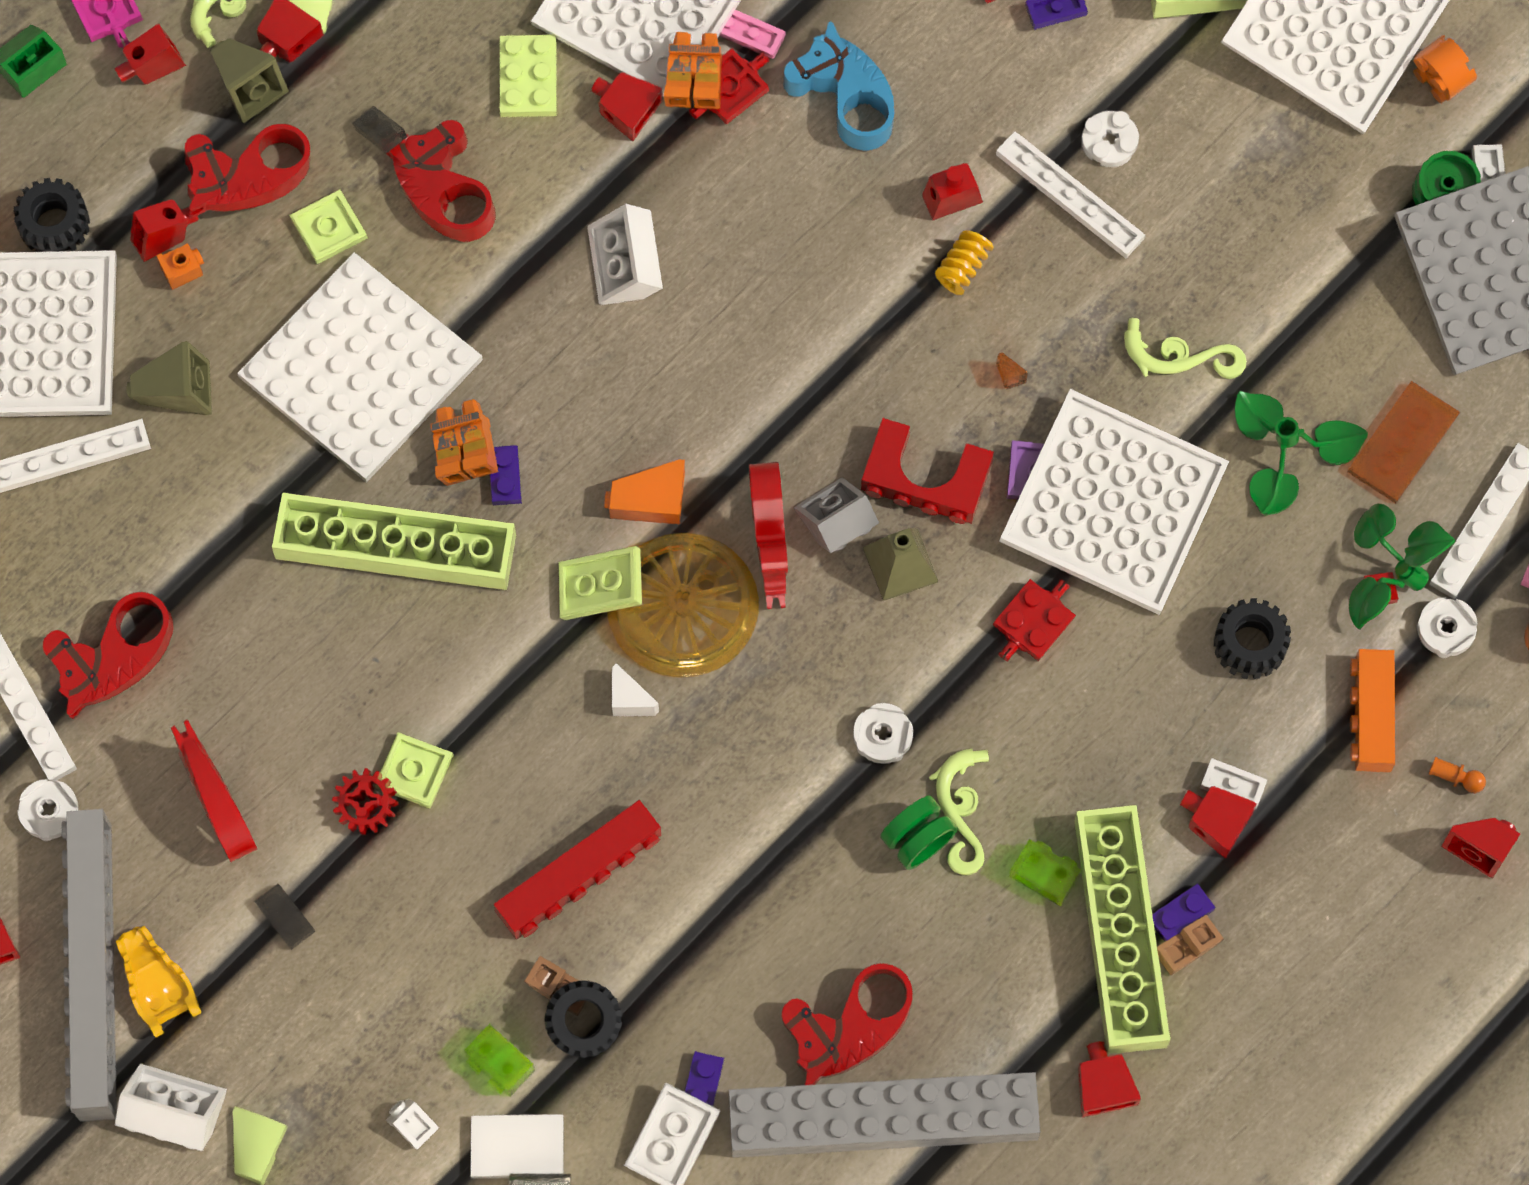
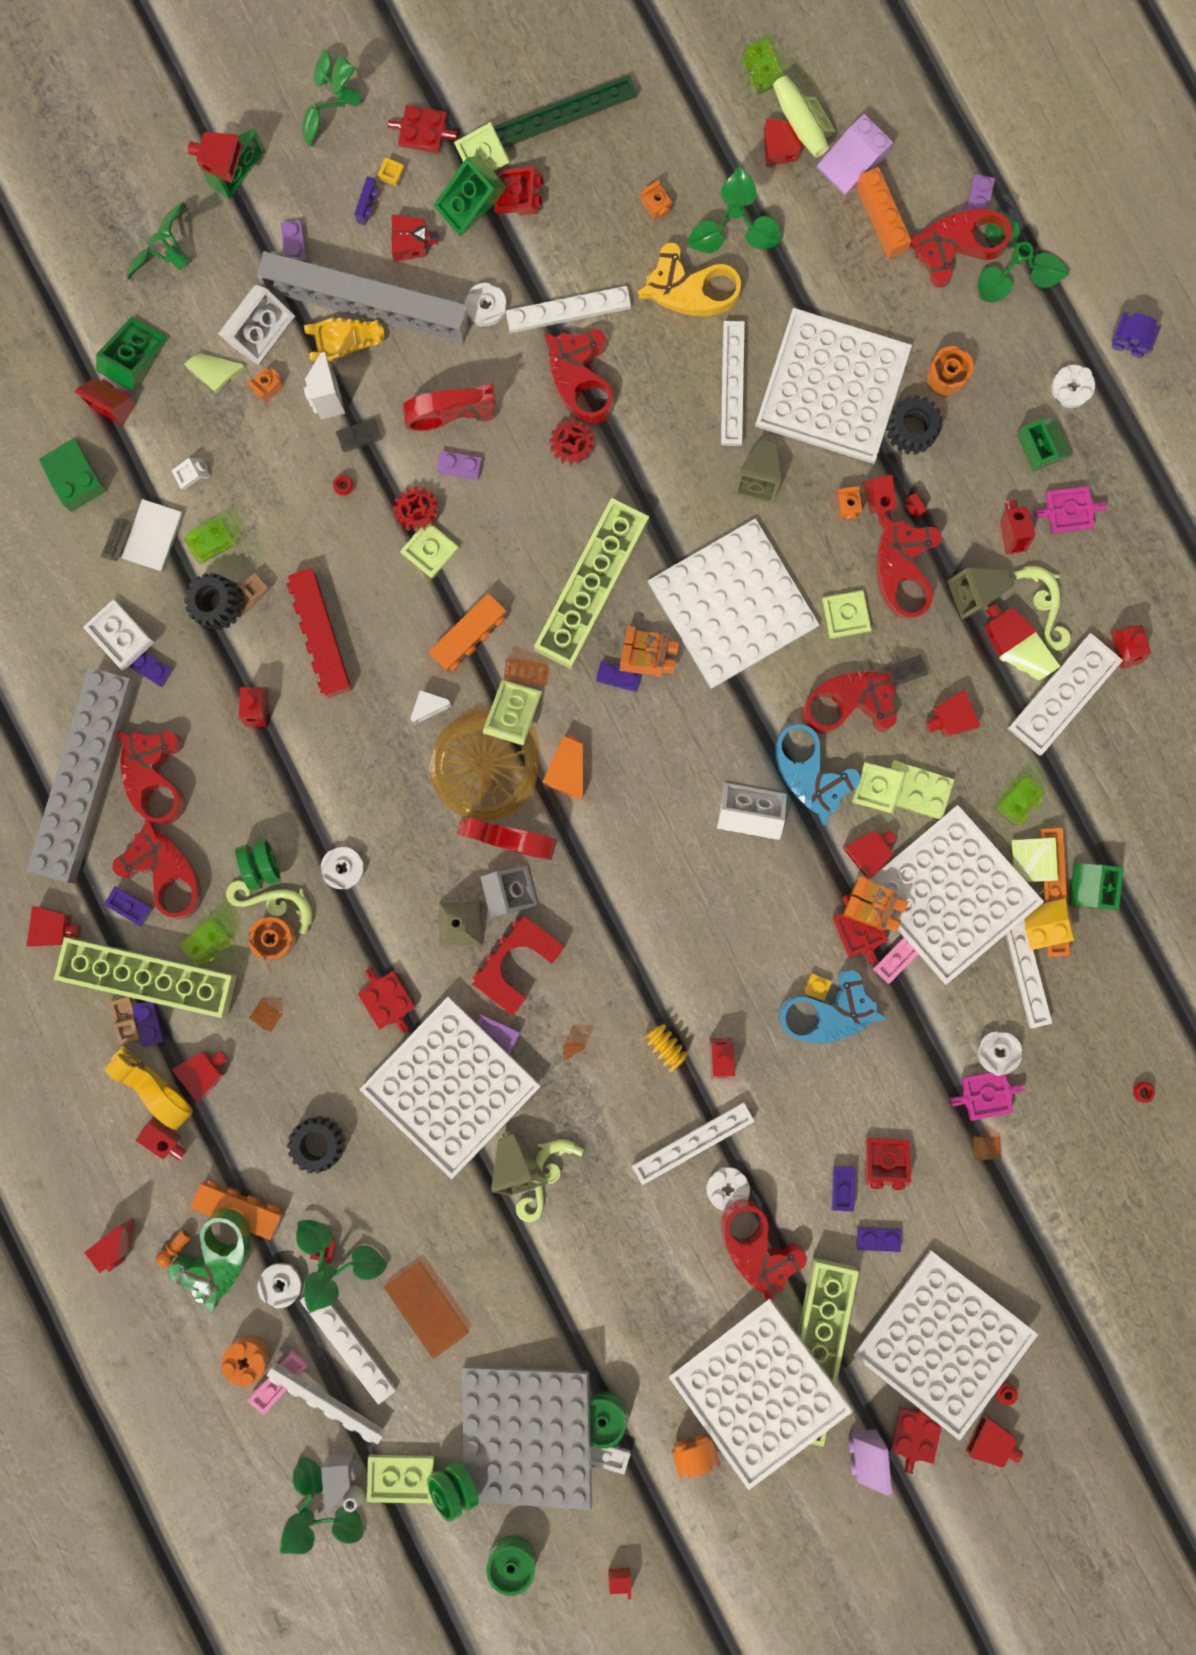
camera: 110 degrees right, 15 degrees up
(34, 1101) = (293, 240): none -> medium lavender plate
(159, 185) = (915, 506): none -> red plate
(201, 640) = (578, 438): none -> red gear
(238, 965) = (323, 389): none -> white slope
(257, 1073) = (268, 390): none -> orange brick
(284, 770) = (459, 465): none -> medium lavender plate
(355, 906) = (343, 479): none -> red plate
(418, 59) = (954, 716): none -> red torso
(513, 678) = (468, 633): none -> orange brick
(542, 117) = (879, 787): none -> yellowish green tile
(544, 612) = (526, 664): none -> clear orange slope
(567, 196) = (815, 790): none -> dark azure animal
(705, 919) = (253, 705): none -> red torso
(820, 114) = (817, 987): none -> yellow plate
(953, 974) = (159, 855): none -> red animal
(1000, 771) = (284, 939): none -> orange brick
(1037, 992) = (128, 906): none -> dark purple plate
(1113, 767) = (265, 1016): none -> clear orange slope
(1180, 78) = (760, 1266): none -> red animal
(1180, 387) = (515, 1167): none -> olive slope
(1233, 781) = (222, 1092): white plate -> none
(1261, 864) = (154, 1091): none -> yellow animal
(1262, 413) = (481, 1217): green plant -> none
(1323, 836) = (153, 1136): none -> red torso
(1451, 697) = (220, 1266): none -> green animal

